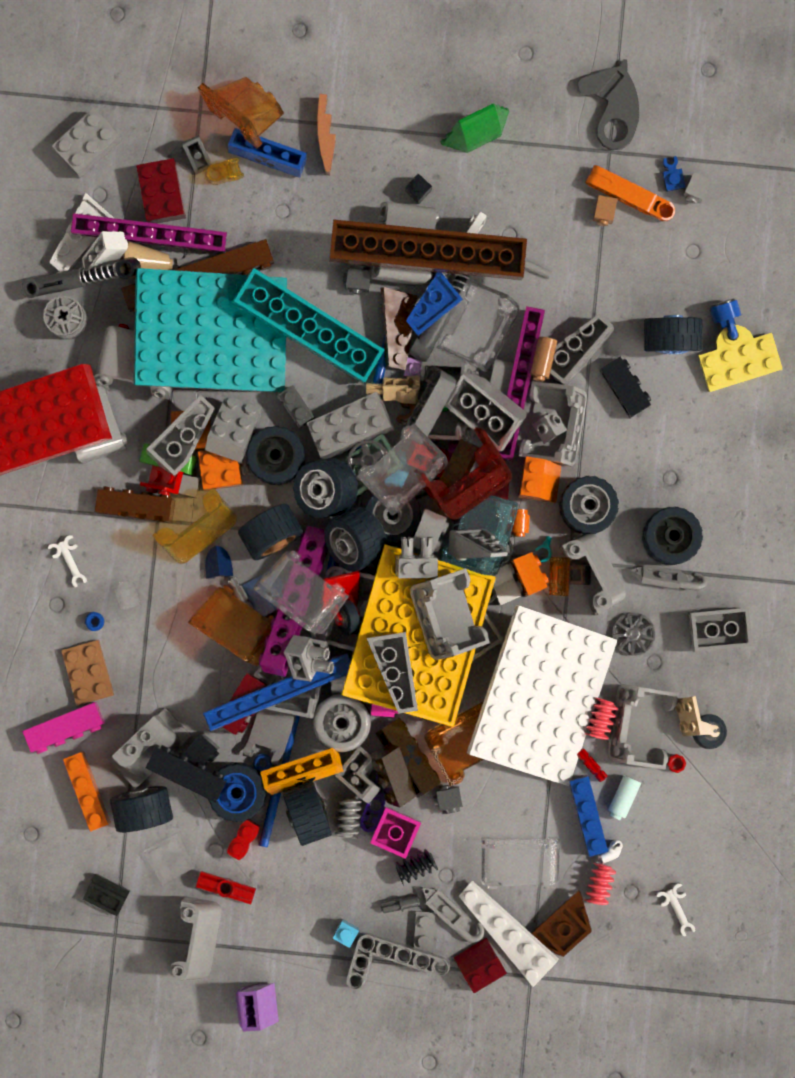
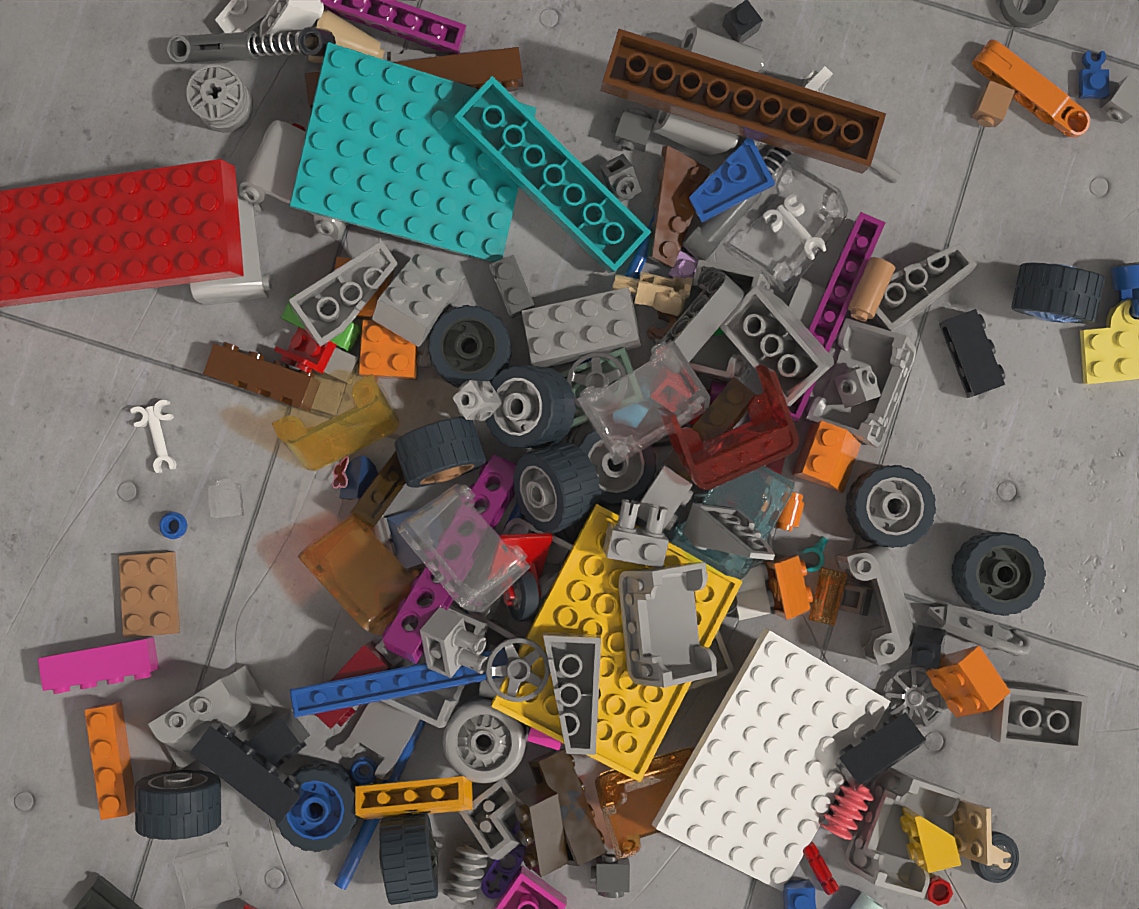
camera: 10 degrees right, 0 degrees up
(204, 564) = (340, 477): none -> dark red sticker
(235, 567) = (380, 493): none -> dark brown plate
(241, 843) = (311, 875): red brick -> none
(289, 490) = (477, 400): none -> light grey brick
(354, 666) = (517, 669): none -> flat silver wheel
(355, 316) = (620, 178): none -> dark grey brick
(476, 317) = (787, 214): none -> white bar
(614, 674) = (879, 750): none -> black brick
(634, 596) = (928, 647): none -> black brick
(661, 729) = (928, 843): none -> yellow slope
(665, 614) = (968, 682): none -> orange brick

